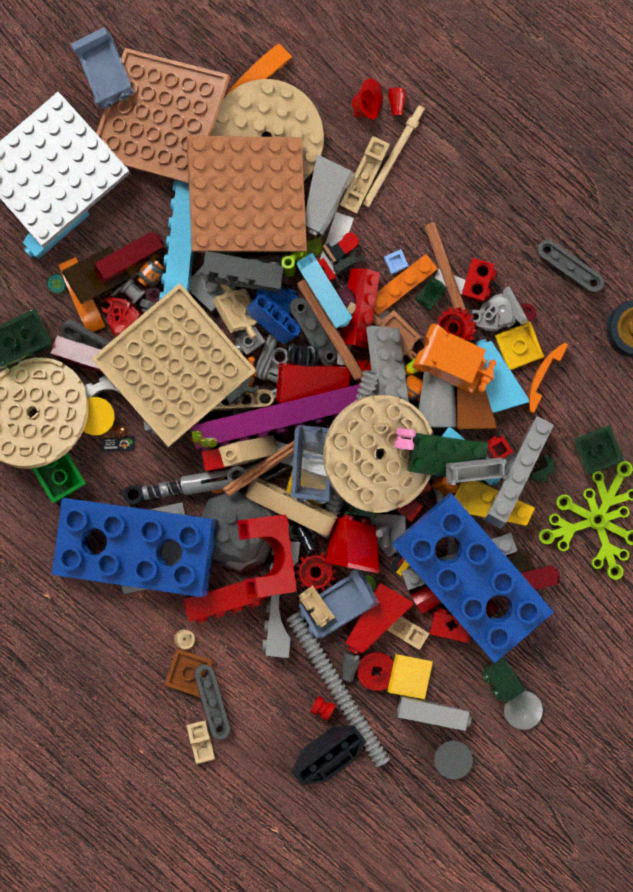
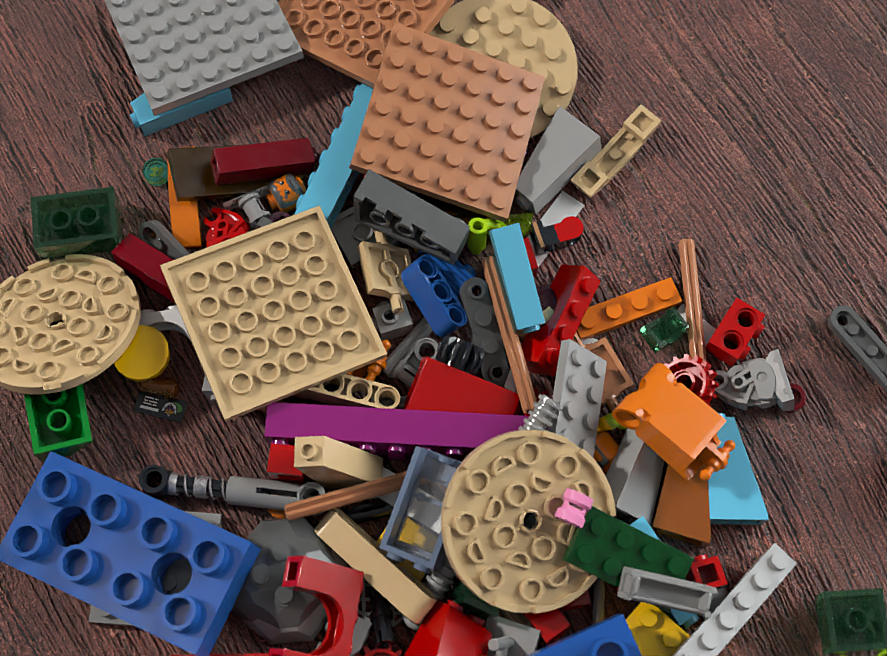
camera: 15 degrees right, 15 degrees down
(205, 442) = (280, 429): clear neon green arm -> none
(237, 395) = (350, 377): pearl dark grey plate -> none
(343, 264) = (553, 257): pearl dark grey plate -> none
(367, 100) = (646, 62): red piece -> none
(396, 99) = (684, 74): red cone -> none
(396, 262) = (626, 277): light blue tile -> none
(411, 125) = (694, 111): tan bar -> none
(442, 486) = (610, 604): orange plate -> none
(519, 346) = (771, 440): yellow tile -> none
(533, 396) = (818, 468): orange slope -> none
(542, 474) = (760, 633): clear green bracket -> none

